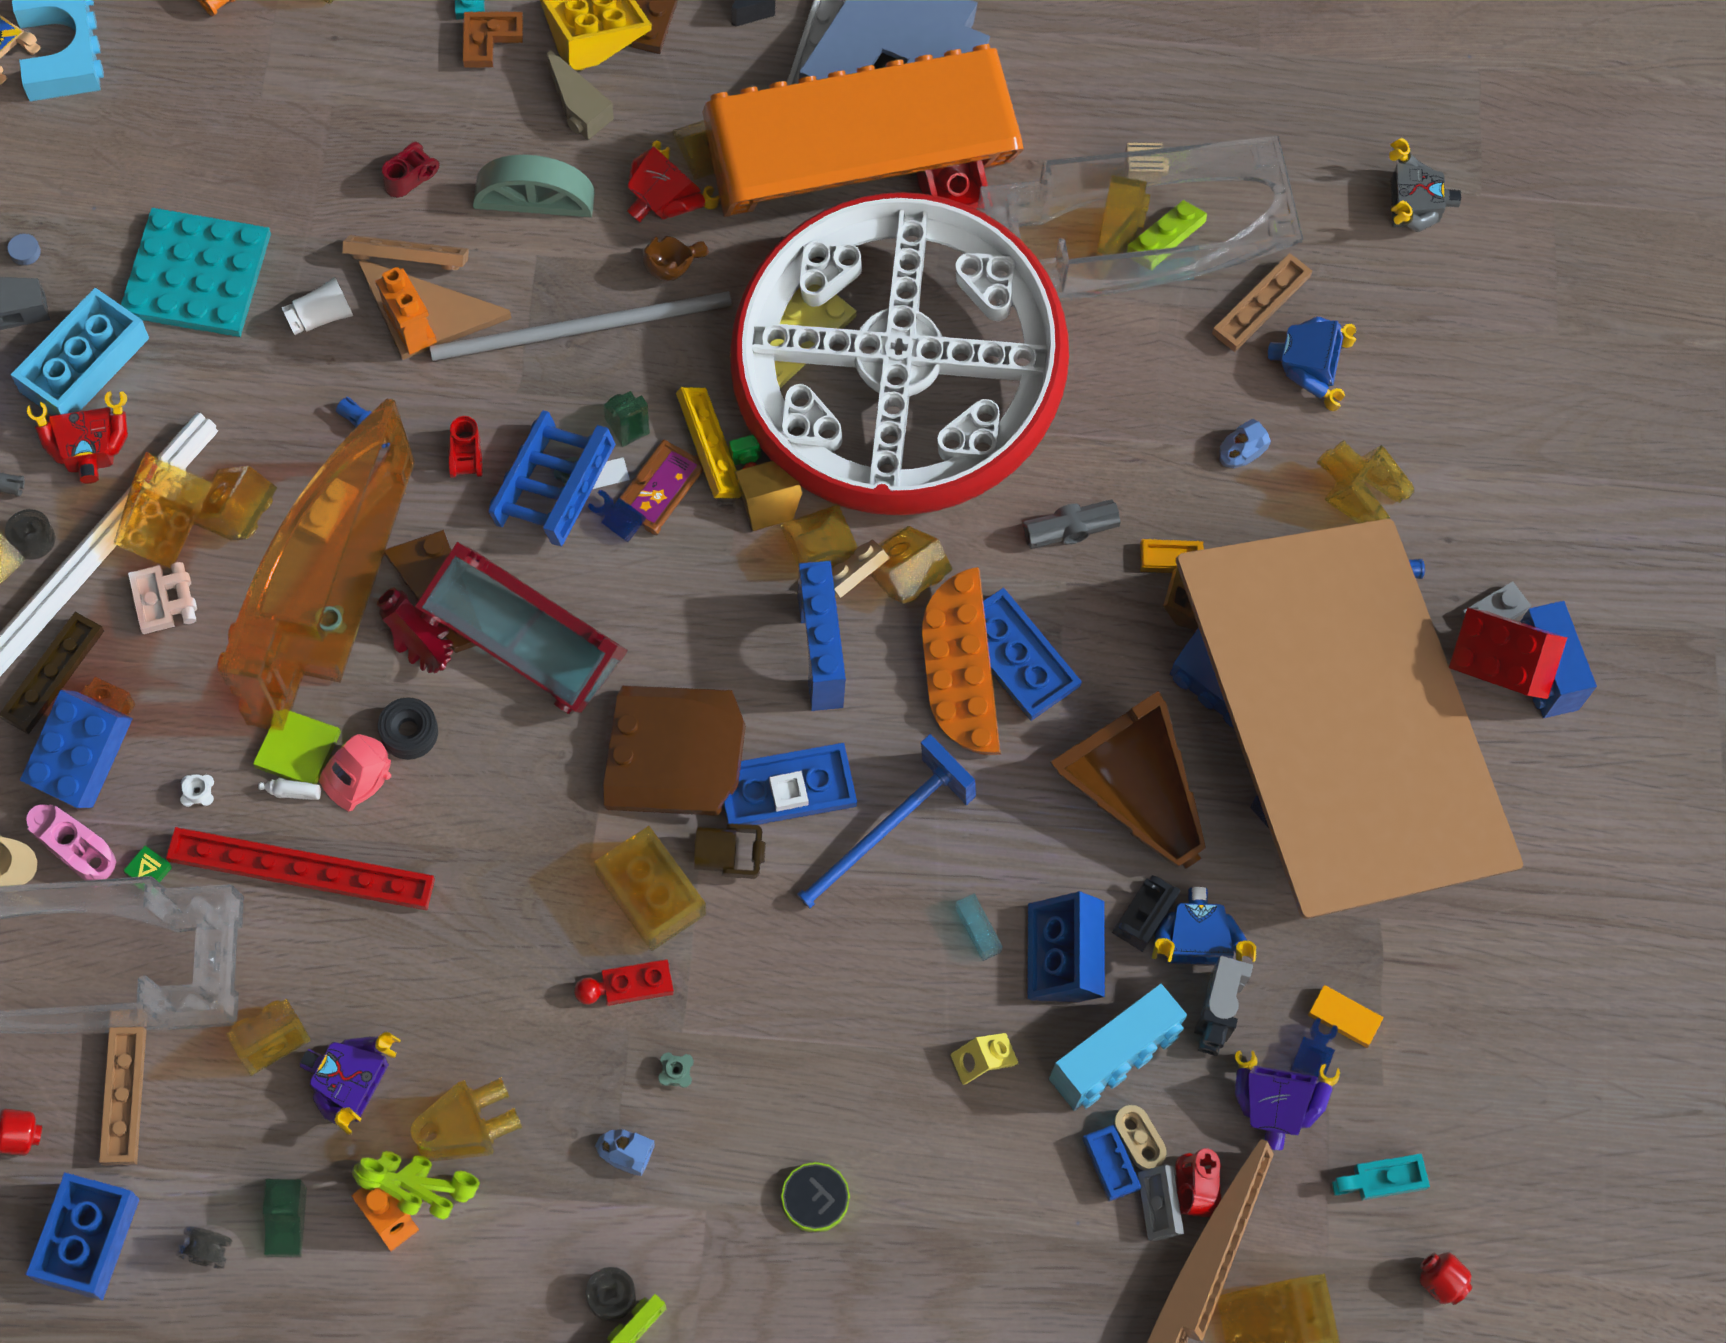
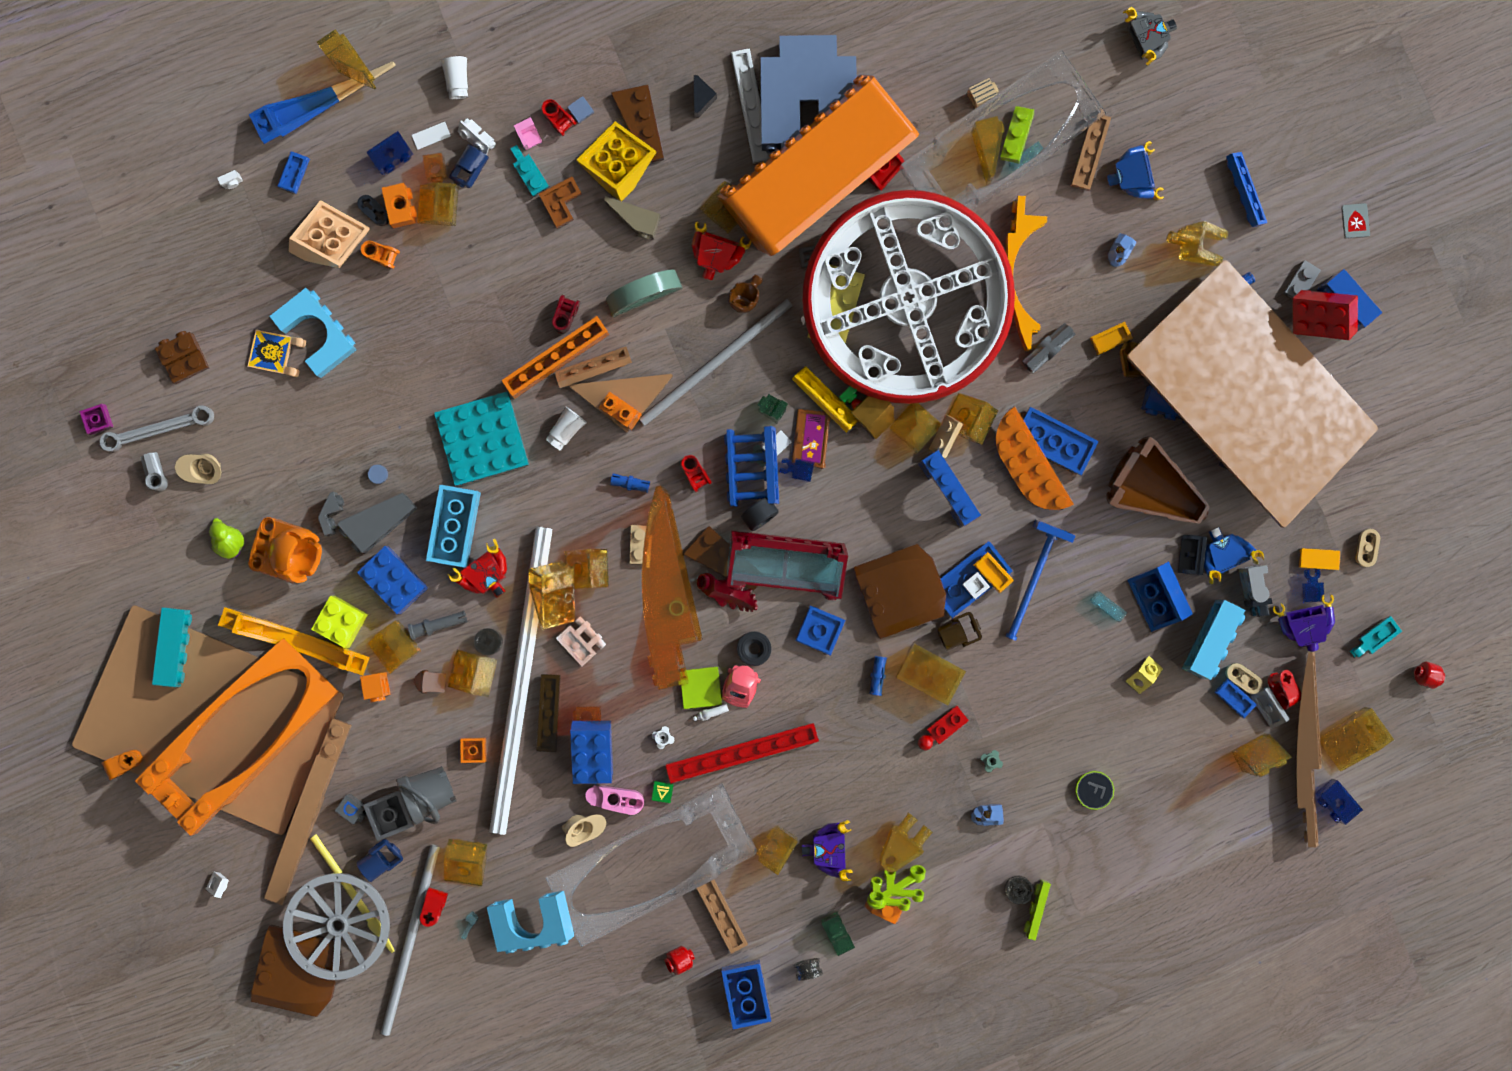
camera: 20 degrees left, 20 degrees up
(360, 212) = (555, 357): none -> orange brick
(521, 750) = (820, 630): none -> blue plate
(524, 543) = (759, 514): none -> black tyre
(571, 857) = (878, 675): none -> blue pin
(826, 788) = (993, 572): none -> light orange tile
(1106, 1264) = (1260, 755): none -> clear yellow slope
(1112, 355) = (1022, 228): none -> light orange slope
(1428, 1035) = (1369, 548): none -> tan plate
(1467, 449) = (1246, 189): none -> blue plate
(1615, 568) = (1356, 220): none -> light grey sticker

